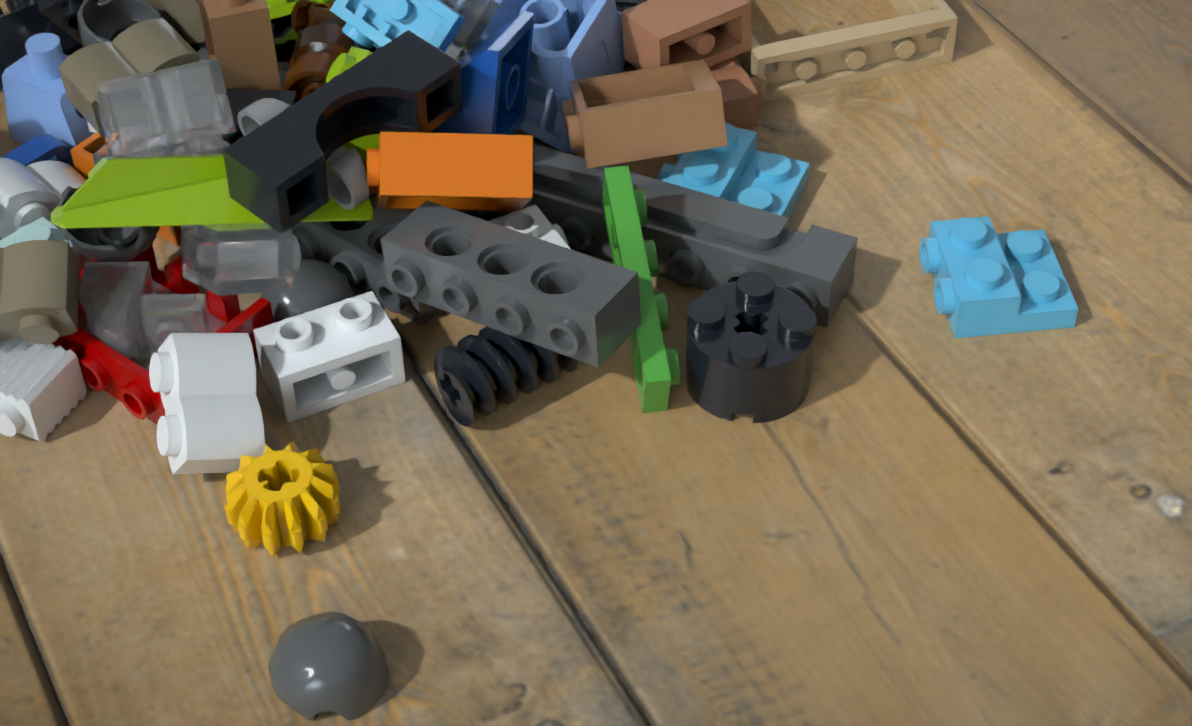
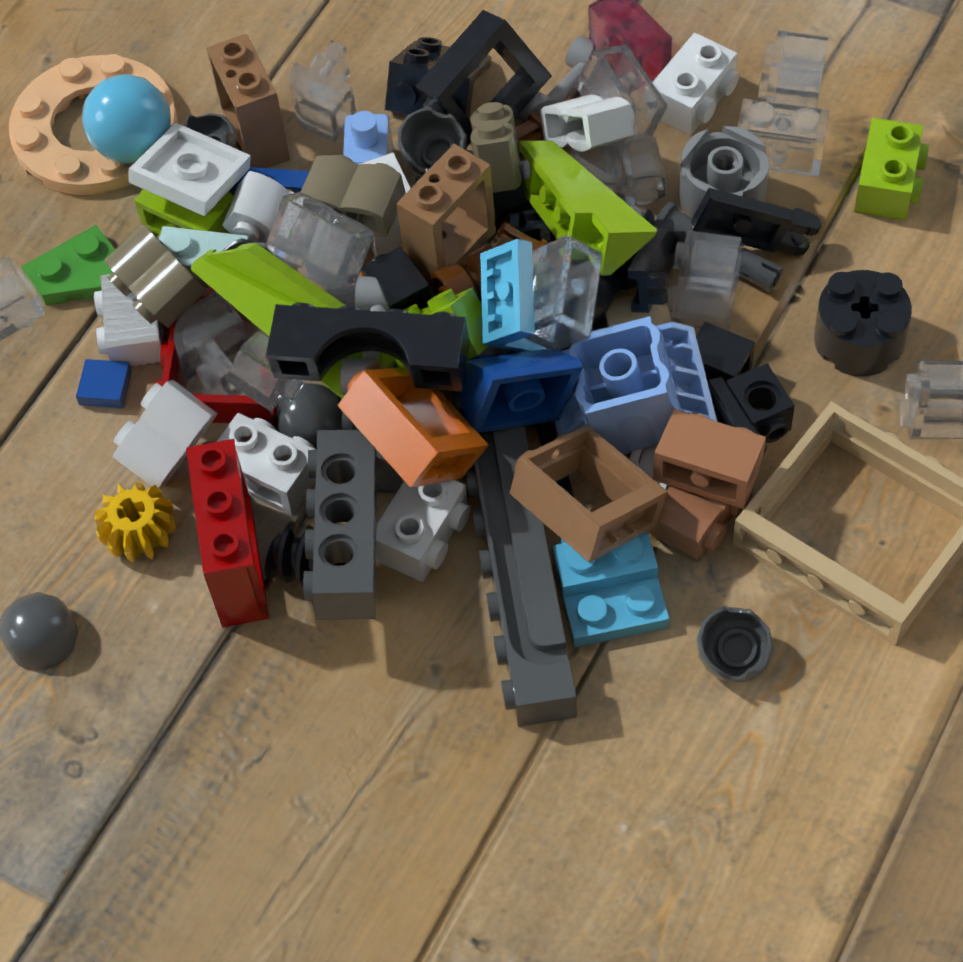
camera: 60 degrees right, 15 degrees up
(55, 453) = (104, 383): none -> blue tile
(407, 382) = (227, 533): none -> red window
(653, 364) = (430, 585): bright green plate -> none
(749, 349) = (431, 692): black brick -> none
(879, 131) = (734, 644): none -> dark grey hair
(995, 279) = (634, 807): medium azure plate -> none

